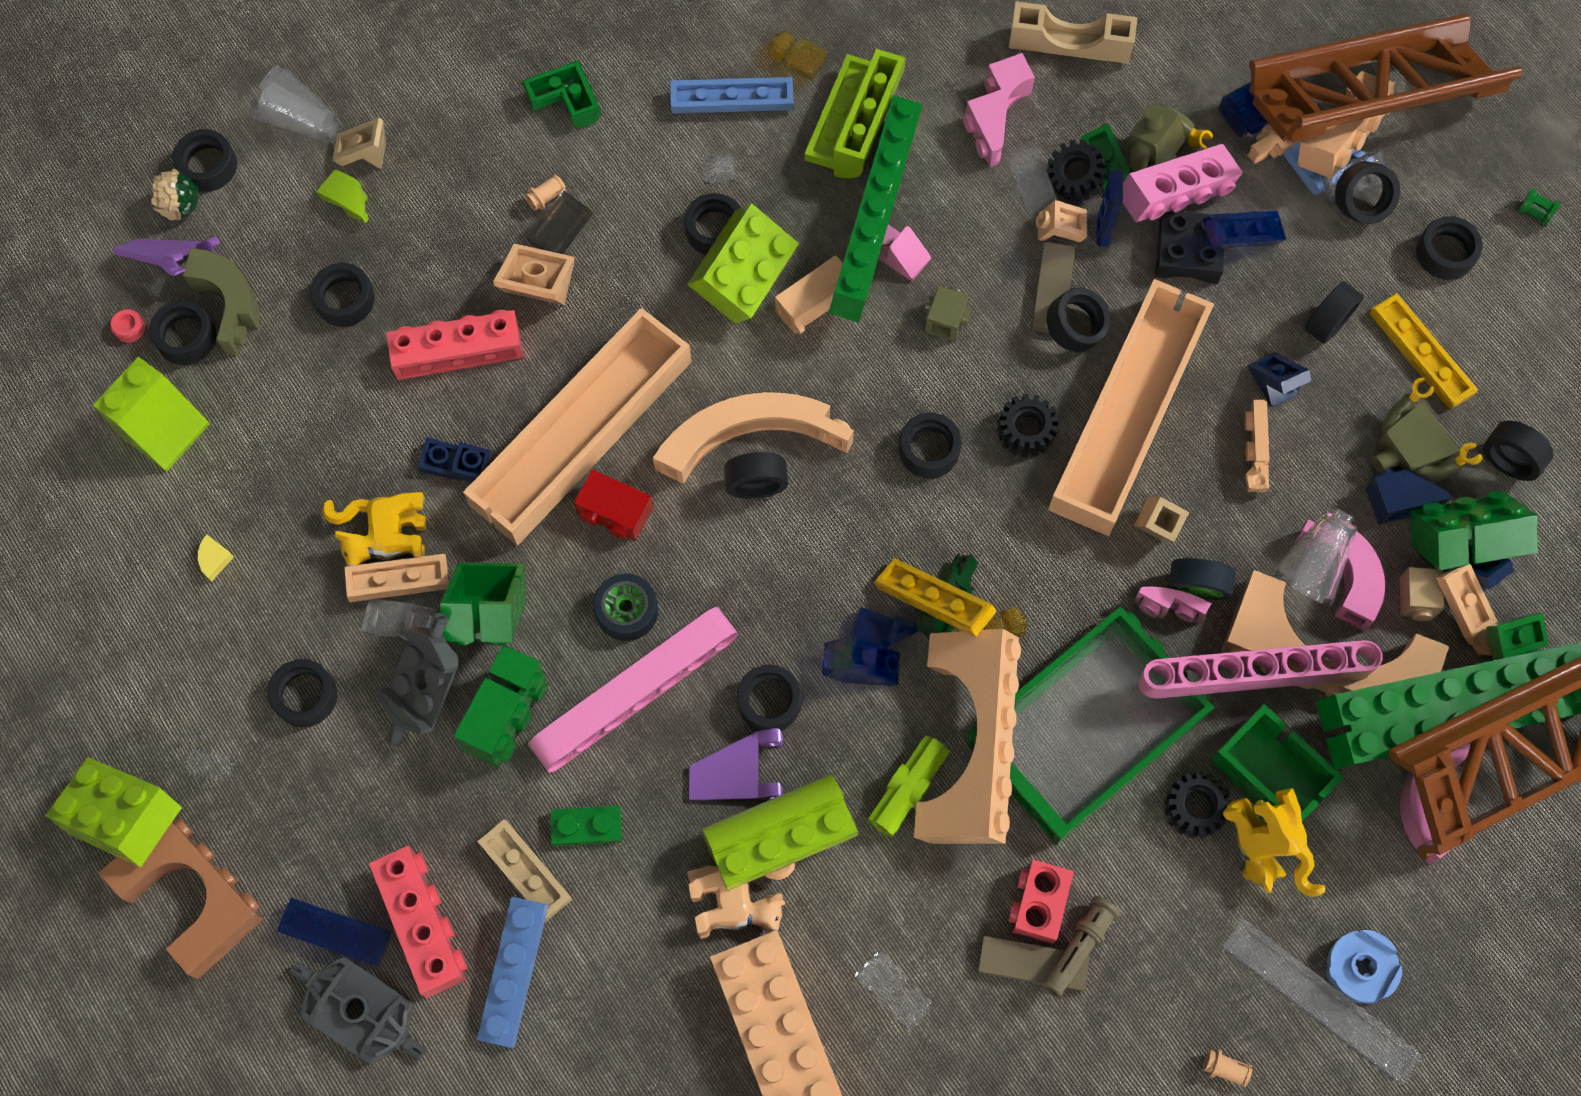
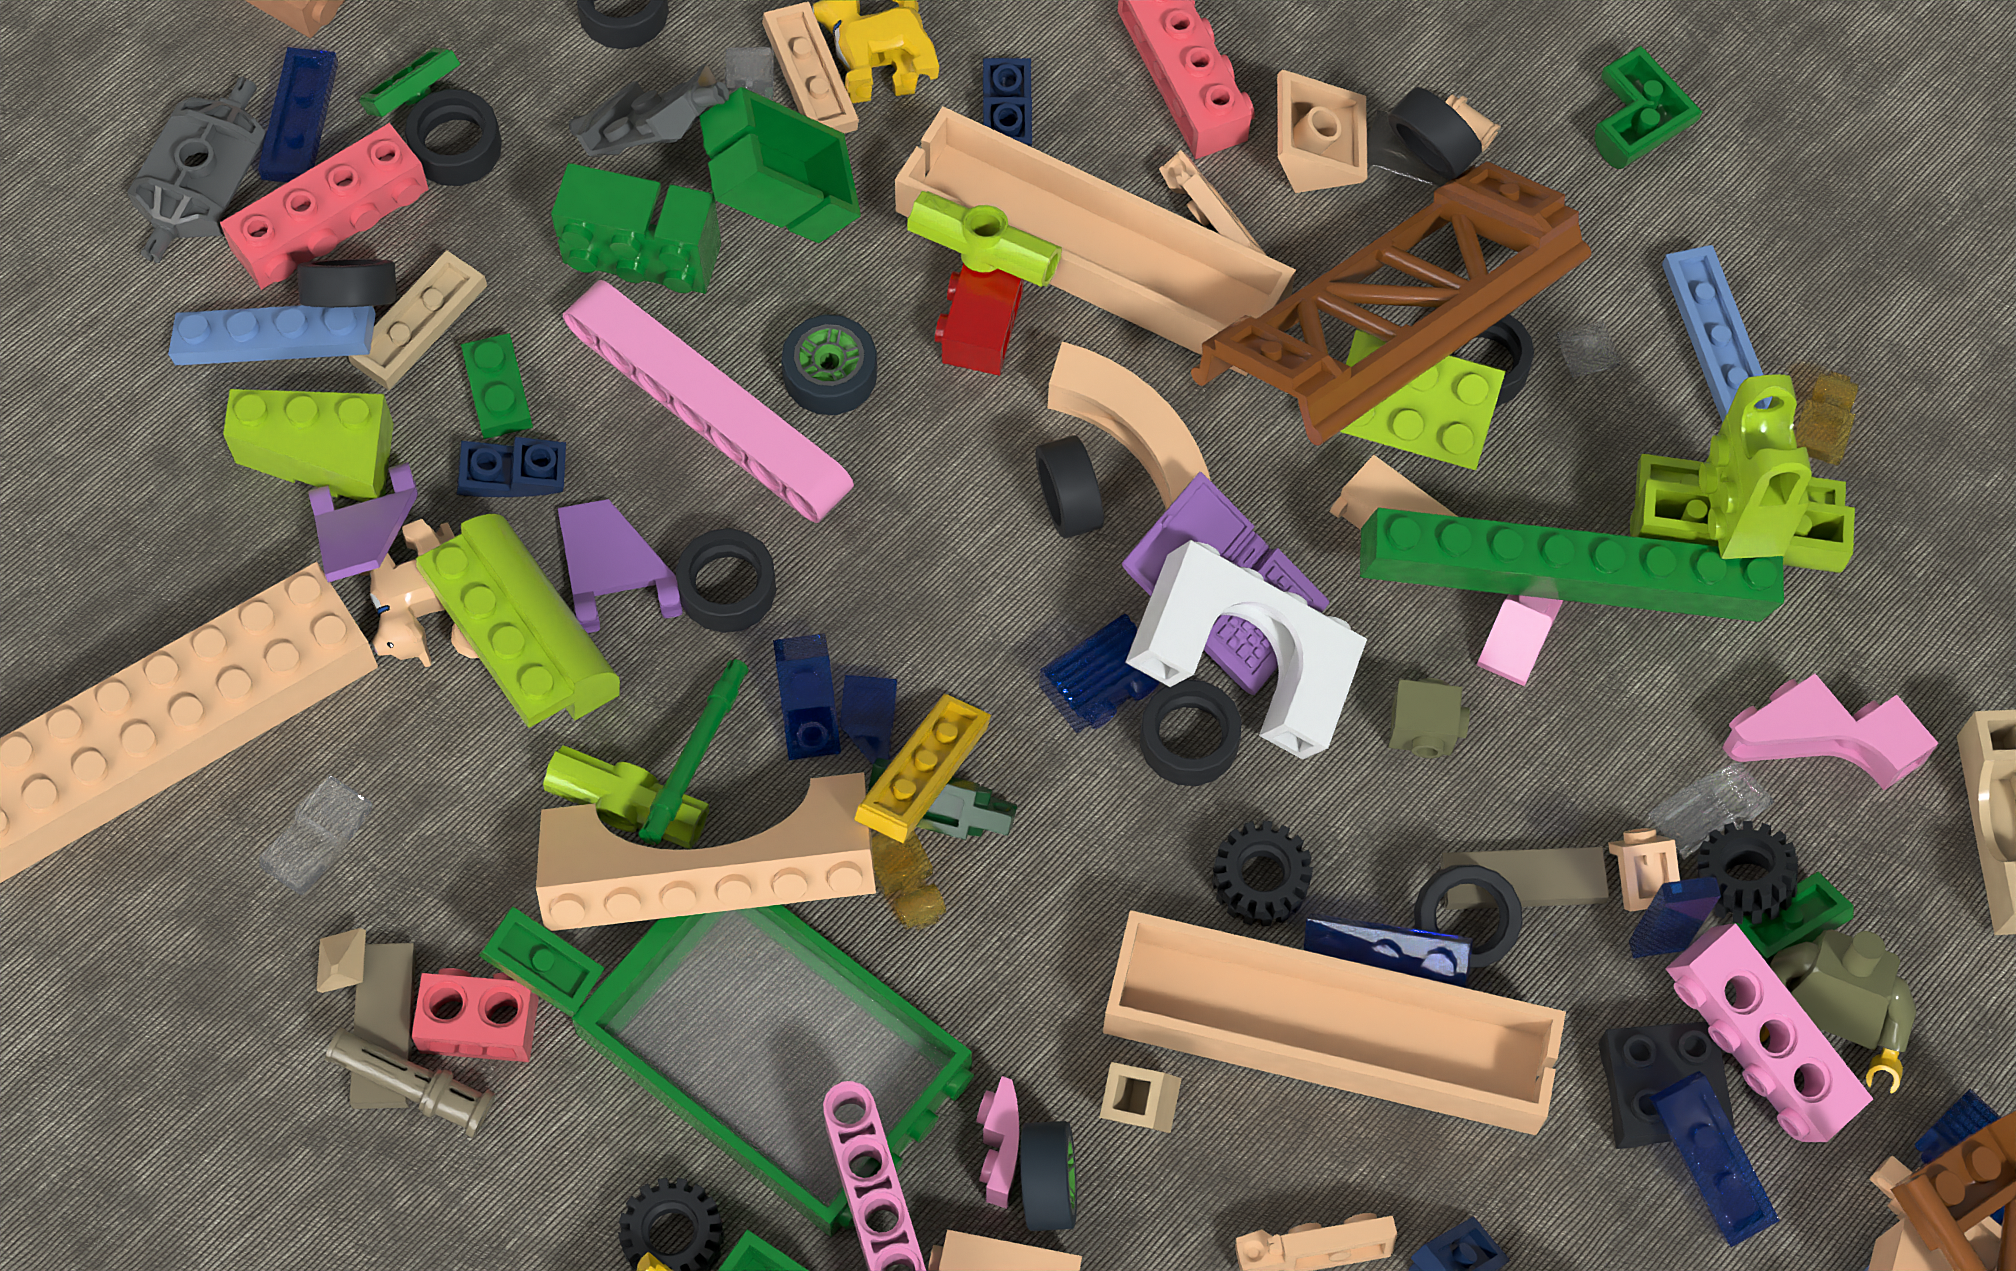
camera: 75 degrees right, 5 degrees down
(329, 849) = (410, 82): none -> green plate
(362, 809) = (445, 107): none -> black tyre
(492, 910) = (347, 283): none -> black tyre
(560, 498) = (984, 238): none -> lime piece
(566, 204) = (1435, 133): none -> black tyre
(567, 354) = (1206, 202): none -> light nougat hinge
(606, 950) = (313, 438): none -> lime wedge
(619, 193) = (1334, 395): none -> dark orange piece
(653, 825) = (518, 470): none -> dark blue slope
(687, 926) = (361, 534): none -> medium lavender flag
(843, 399) = (1210, 518): none -> medium lavender piece
(865, 81) = (1756, 472): none -> lime brick
(882, 486) = (1094, 678): none -> clear blue brick
(898, 363) = (1312, 650): none -> white arch
(927, 752) = (669, 798): none -> green piece
(987, 984) = (341, 960): none -> tan slope
(1024, 849) = (541, 961): none -> green plate
(1094, 367) = (1391, 948): none -> clear blue plate

